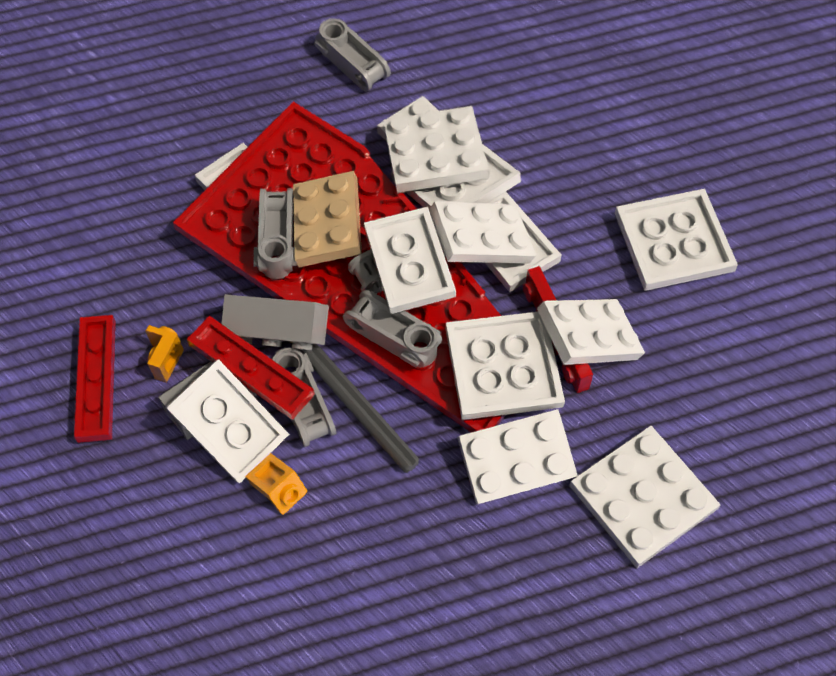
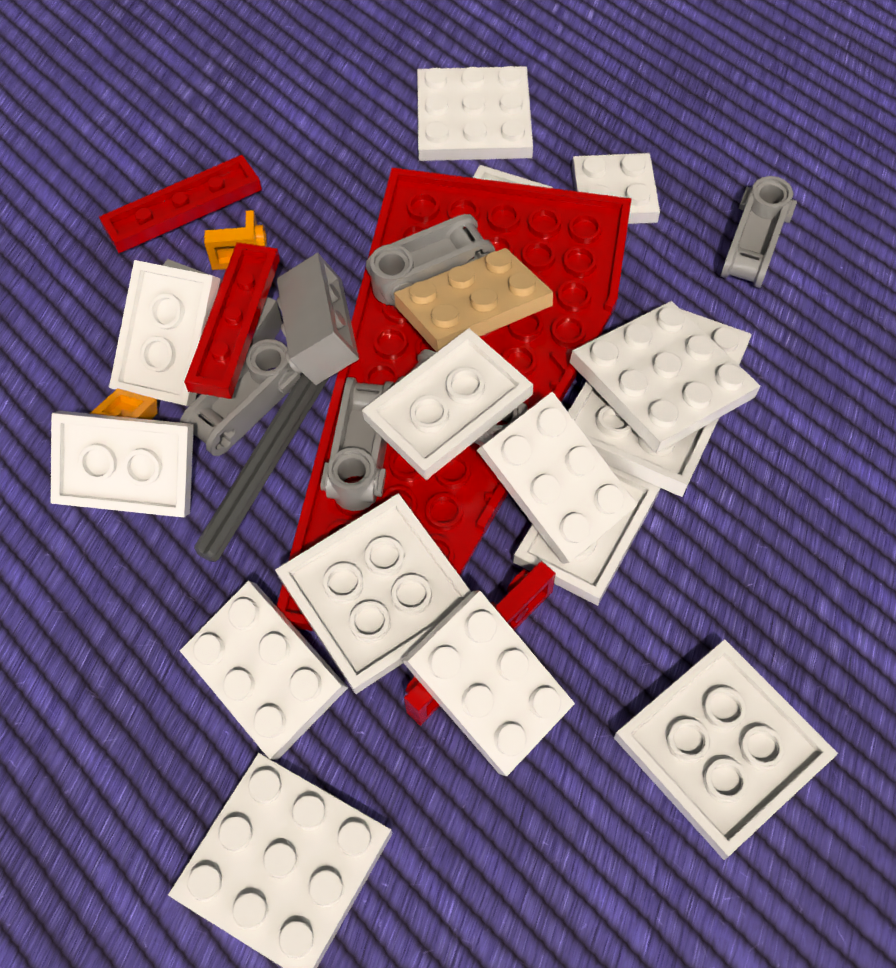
camera: 65 degrees right, 0 degrees up
(136, 161) = (474, 113): none -> white plate
(257, 108) = (621, 177): none -> white plate
(319, 488) = (121, 463): none -> white plate

